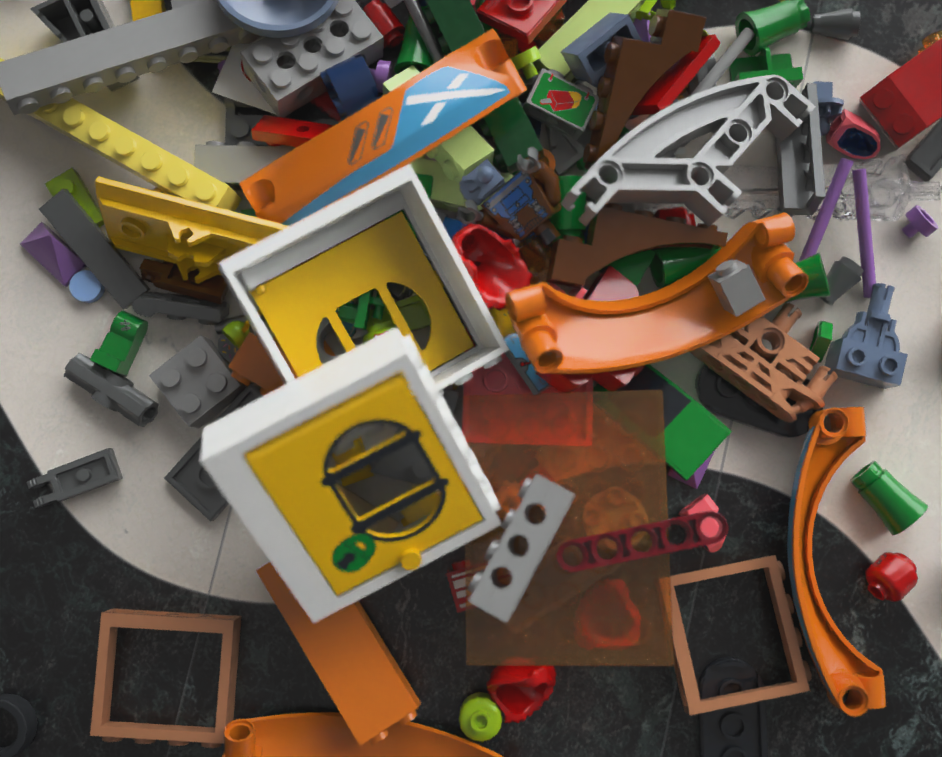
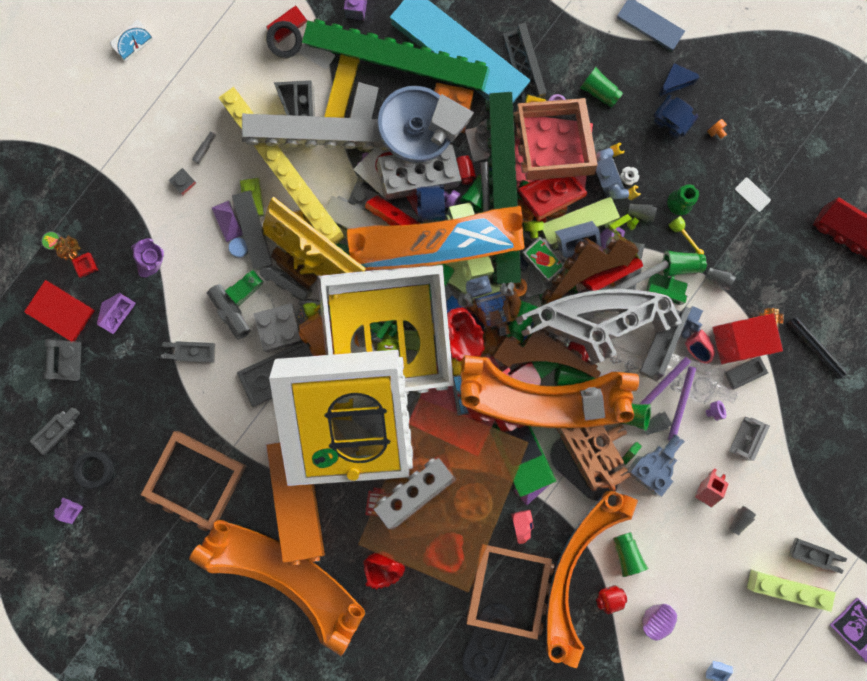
camera: 20 degrees right, 0 degrees up
(480, 717) = (353, 576): lime head -> none
(659, 544) = (470, 512): dark red beam -> none

